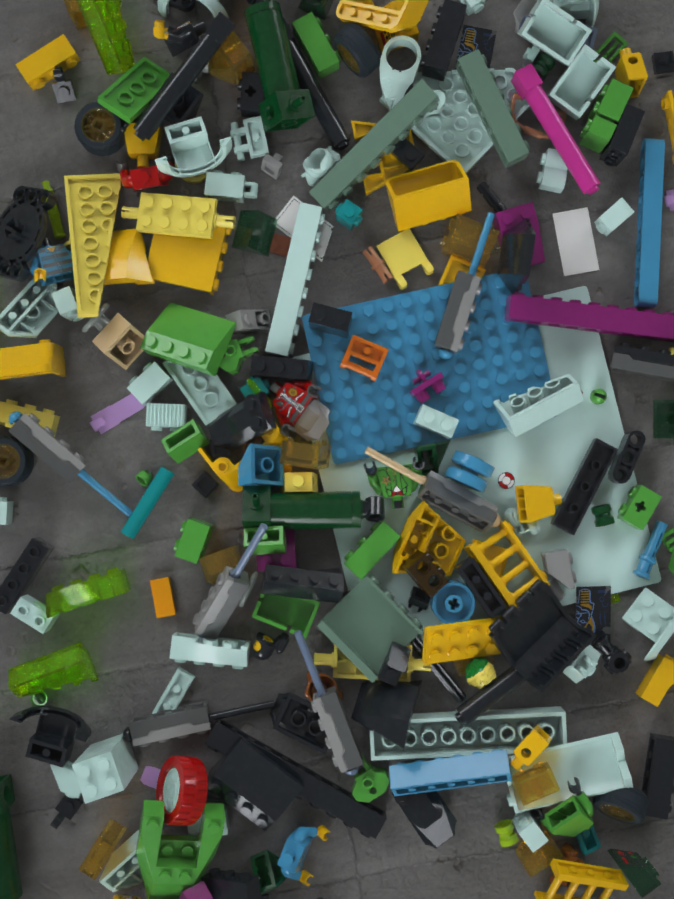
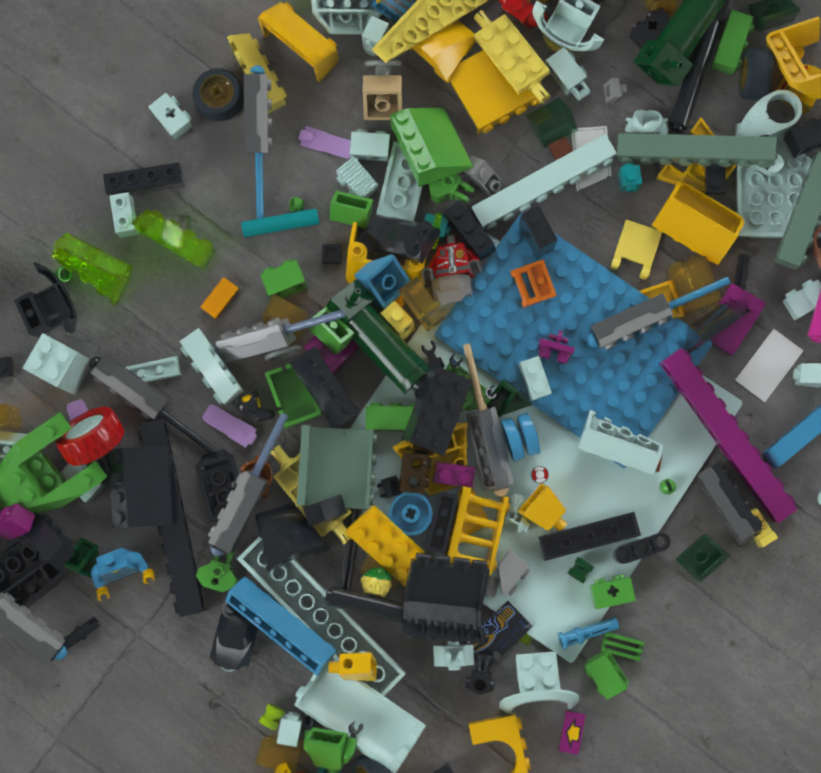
camera: 50 degrees right, 5 degrees down
(66, 780) = (21, 348): light aqua slope -> none
(255, 136) = (622, 61): light aqua plate -> none
(265, 674) = (229, 425): none -> lavender piece
(358, 482) = (433, 360): none -> black plate
(378, 264) = (612, 233): nougat pin -> none
(397, 517) = (436, 410): none -> black brick
(452, 544) = (454, 474): none -> magenta plate
(535, 782) = (330, 696): clear yellow brick -> none

